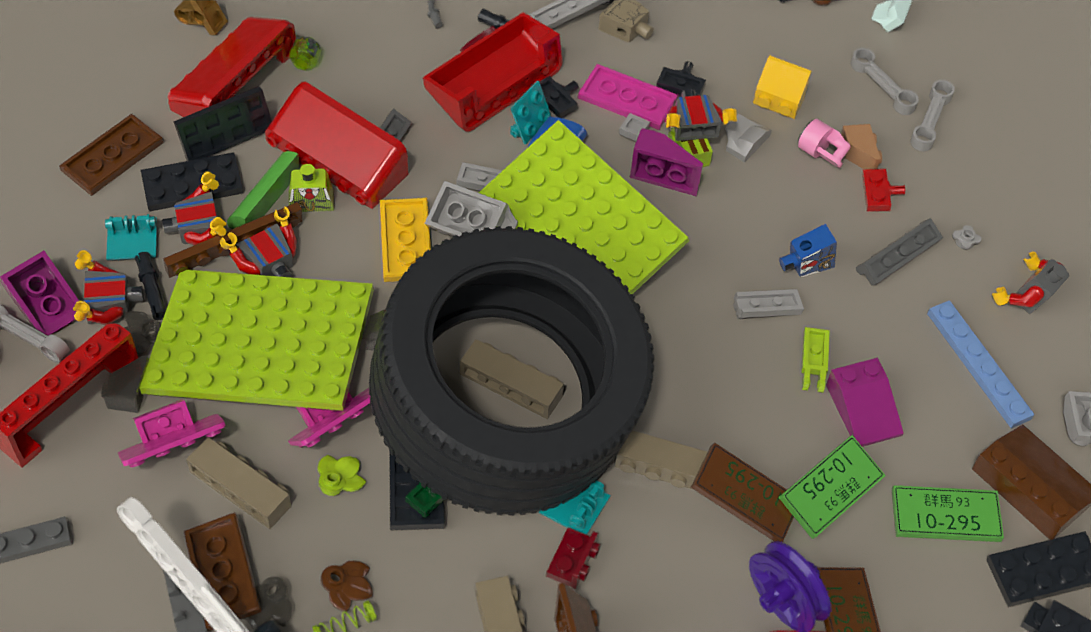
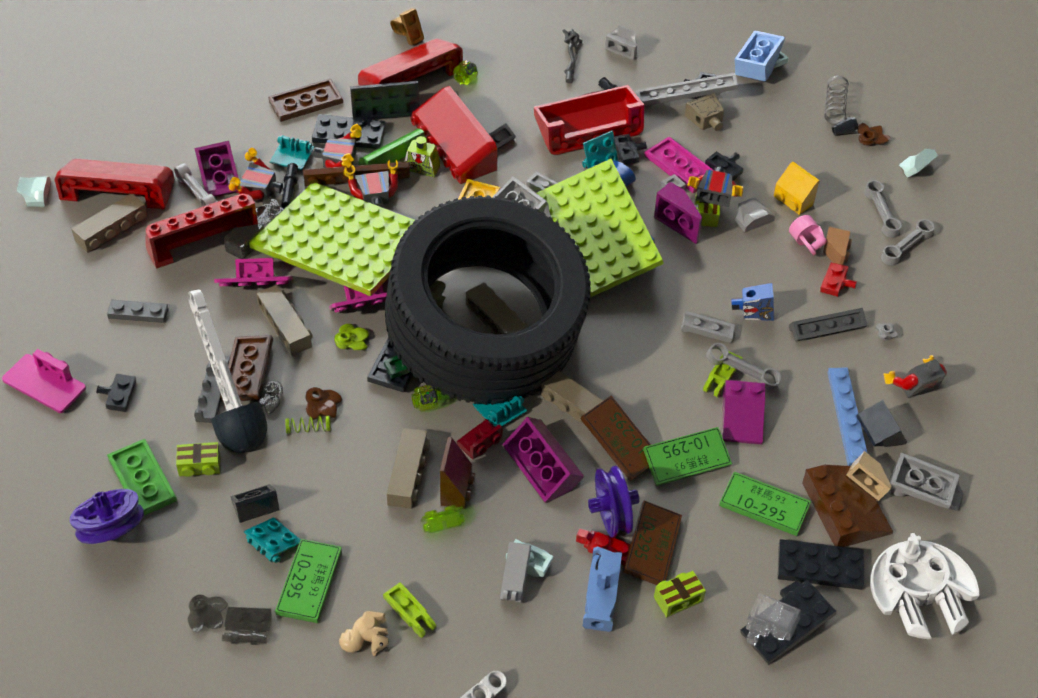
camera: 25 degrees right, 5 degrees down
(478, 527) = (425, 398): none -> clear neon green head
(665, 558) = (542, 459): none -> magenta slope
(838, 342) = (743, 366): none -> light grey piece
(1026, 363) = (881, 426): none -> slope
(1047, 433) = (869, 476): none -> tan slope

